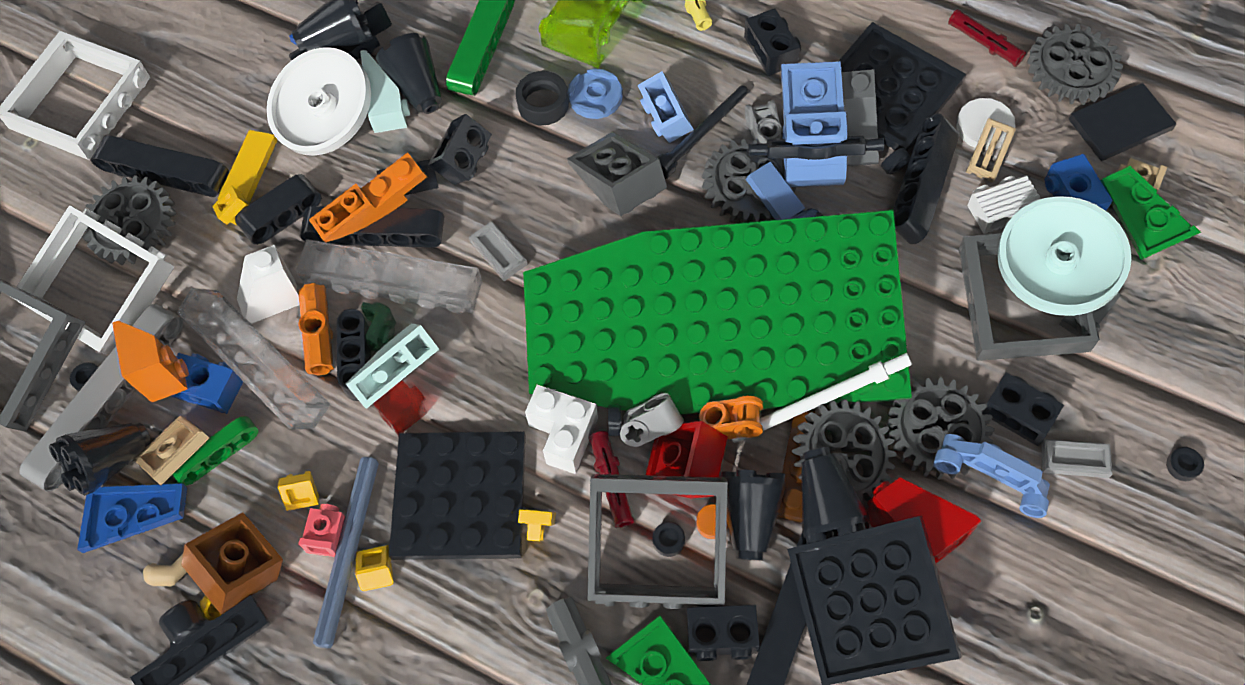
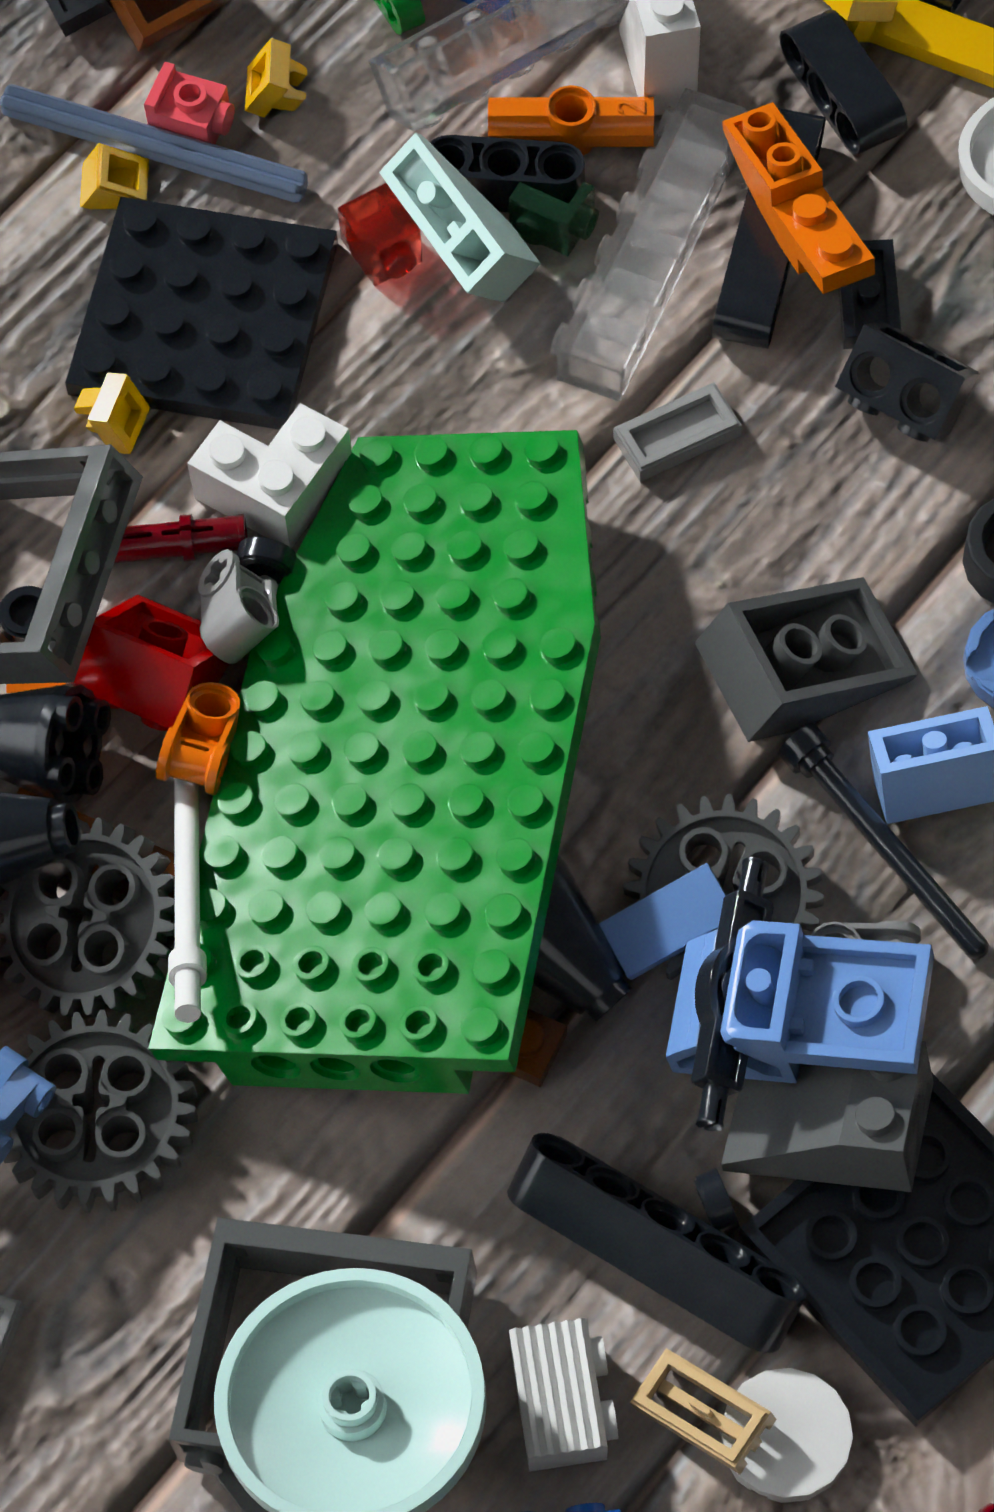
camera: 100 degrees right, 0 degrees up
(1018, 415) = (76, 1263): black brick -> none

